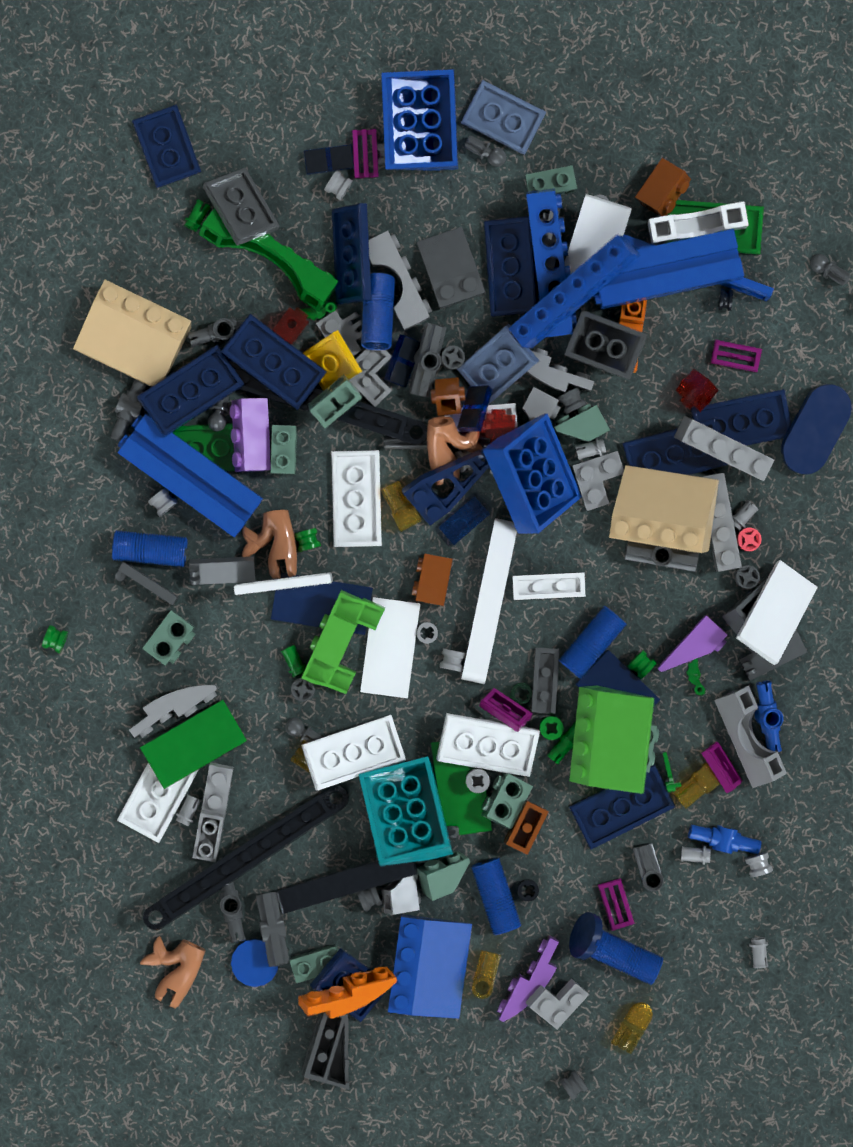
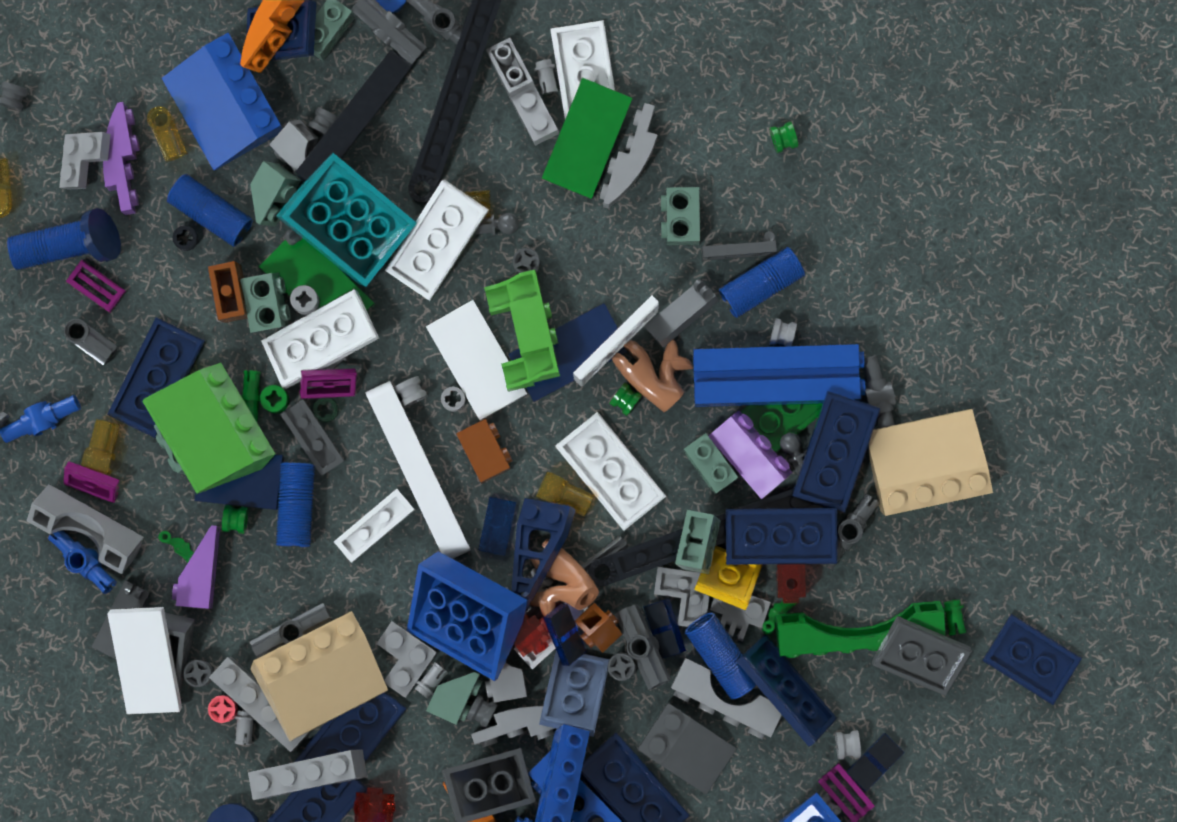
camera: 140 degrees right, 5 degrees down
(293, 660) = (554, 281): green pin -> none
(670, 786) = (126, 429): green piece -> none
(696, 854) = (56, 385): light grey pin -> none

